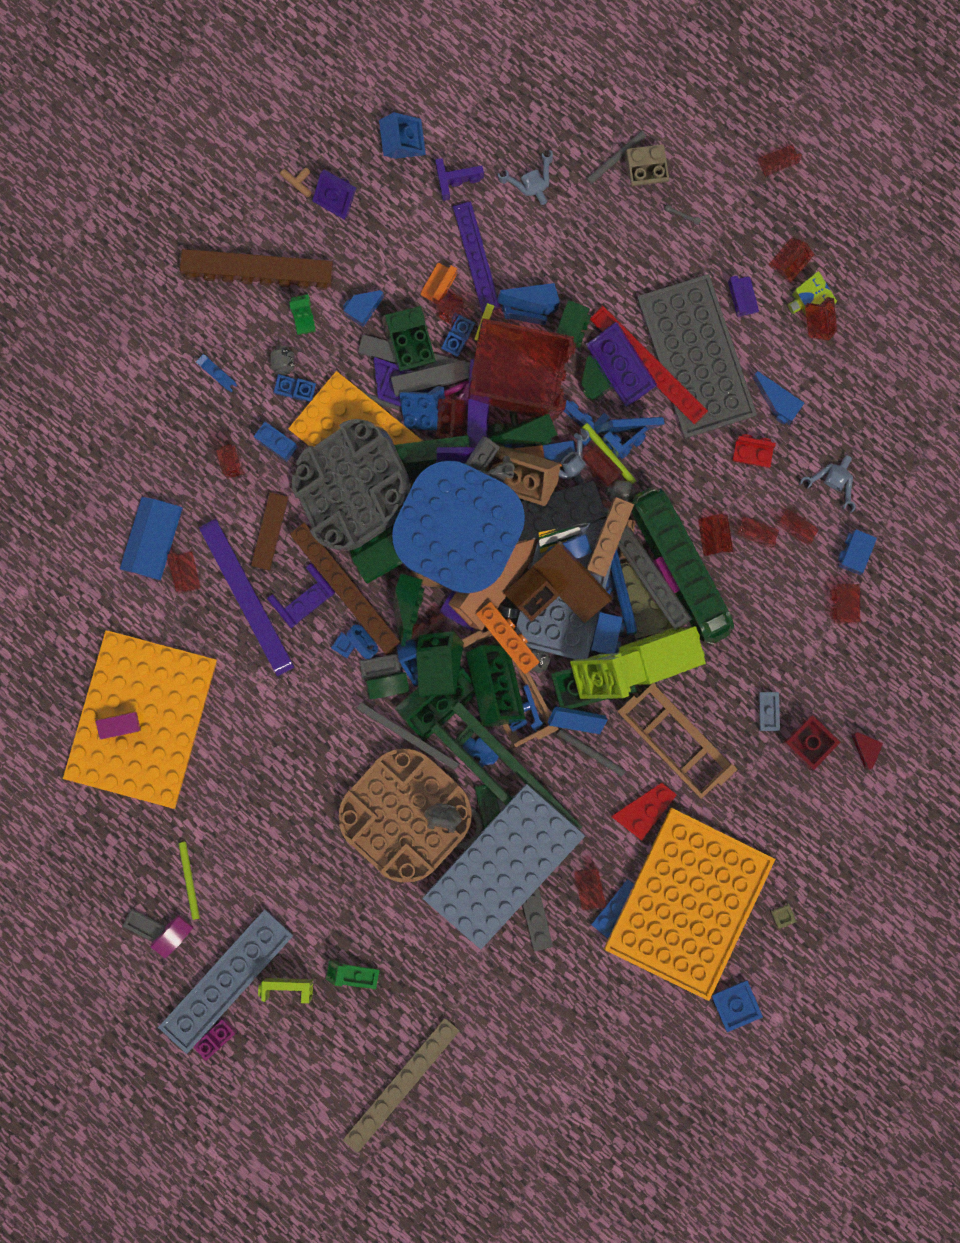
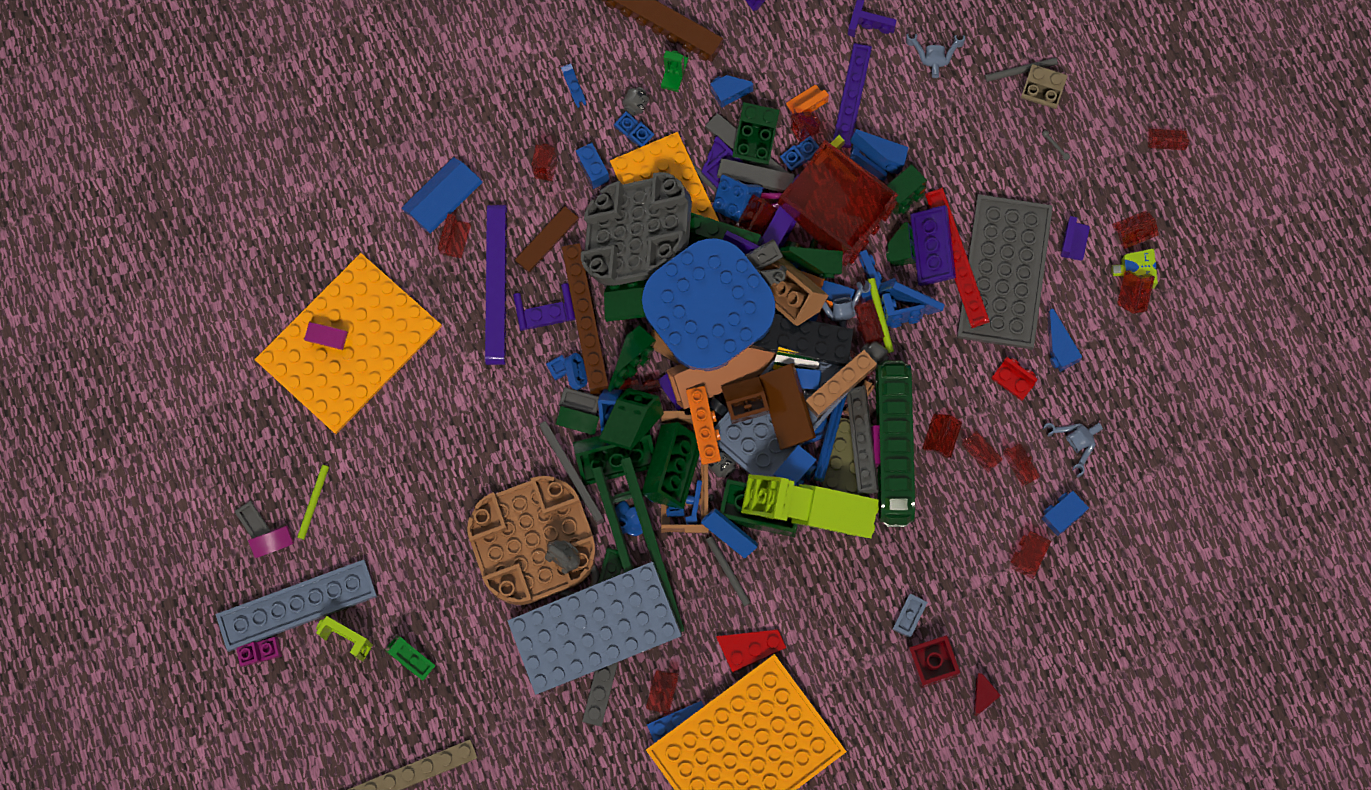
camera: 35 degrees right, 10 degrees down
(728, 769) = (790, 544): medium nougat piece -> none

